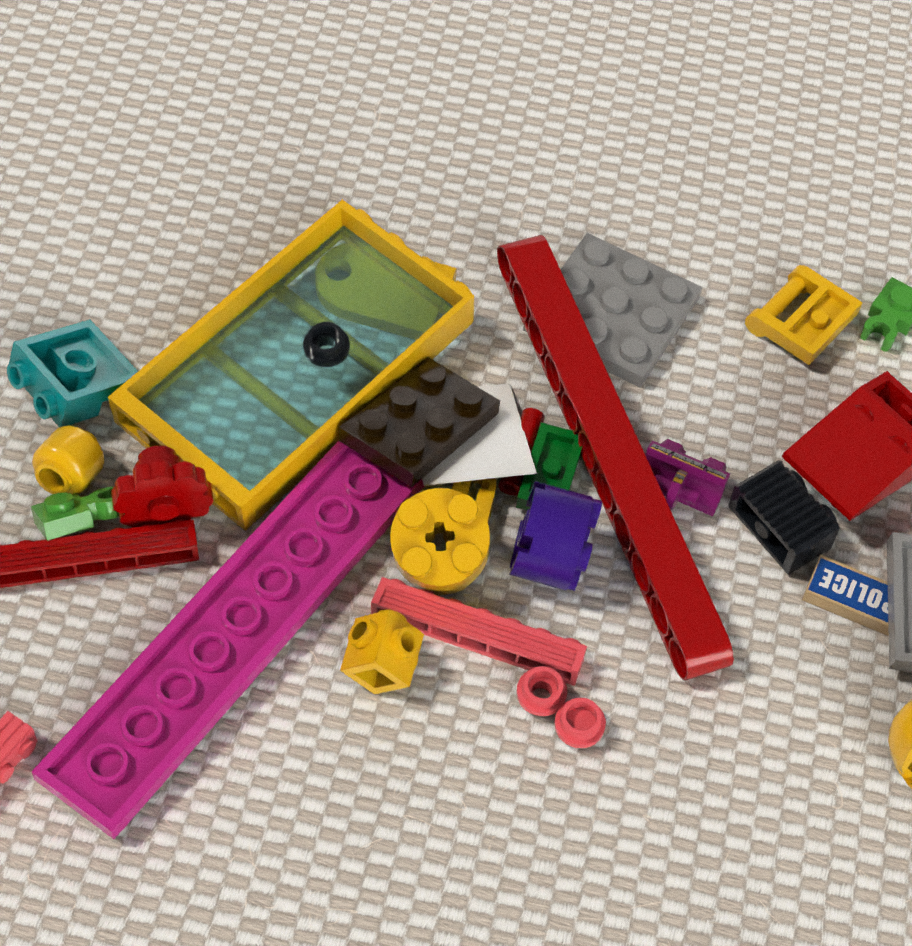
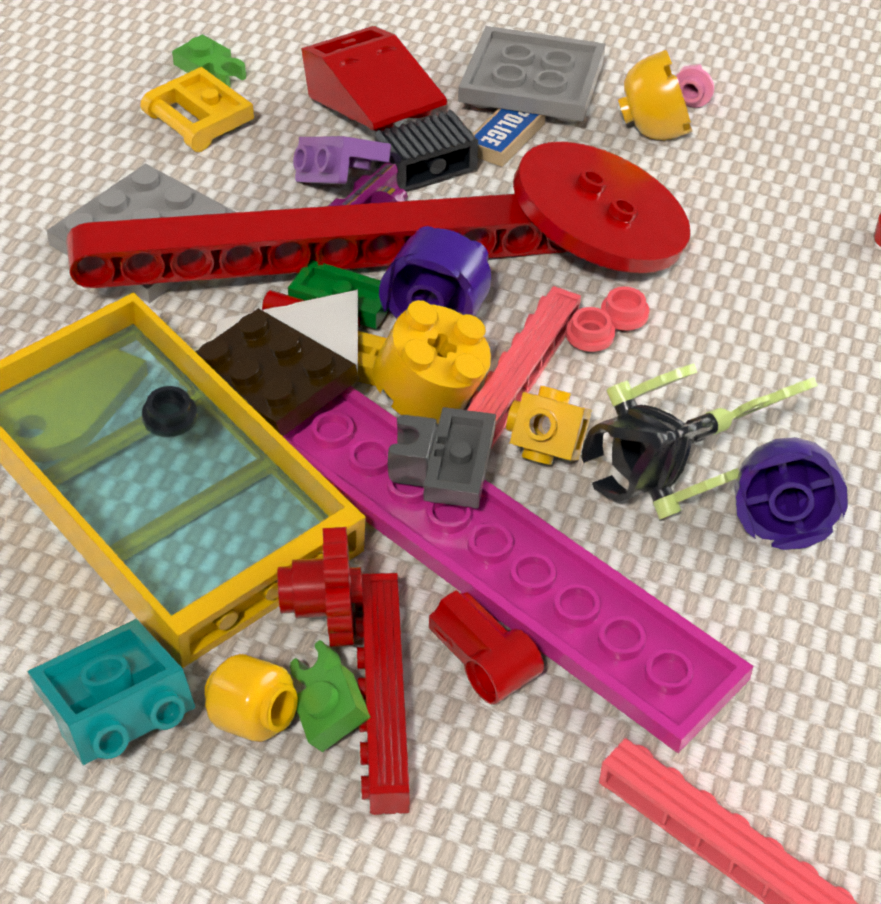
camera: 80 degrees left, 10 degrees down
(118, 630) = (493, 658): none -> red piece
(319, 564) = (444, 458): none -> dark grey plate
(325, 865) = (790, 493): none -> dark purple cylinder
(356, 732) = (655, 445): none -> black helmet
(716, 683) = (601, 207): none -> red plate
(738, 433) = (329, 157): none -> medium lavender bracket

